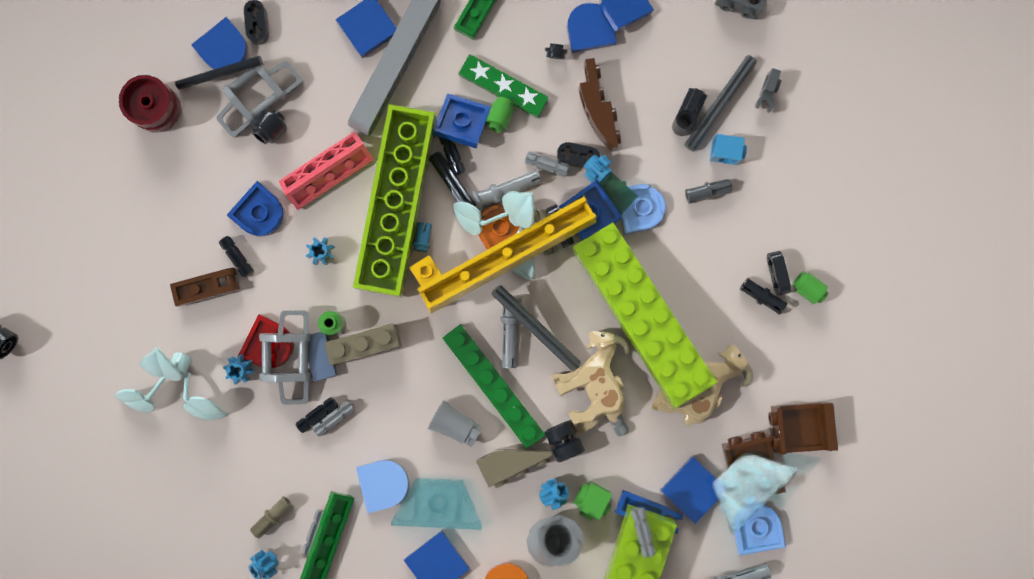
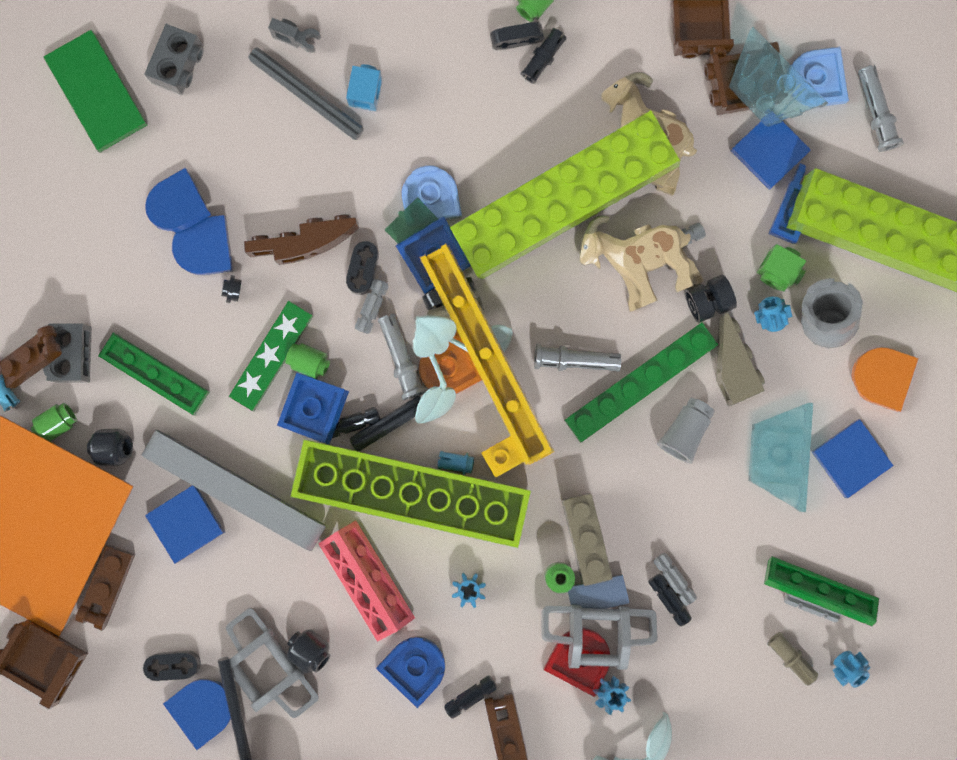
camera: 85 degrees left, 0 degrees up
(382, 484) = (756, 521): light blue tile -> none
(536, 327) = (573, 326): dark grey axle -> none
(597, 168) = (382, 243): dark azure gear -> none
(643, 532) = (824, 206): light grey axle -> none
(689, 111) = (314, 131): black piece -> none
(708, 190) = (413, 113): dark grey axle -> none

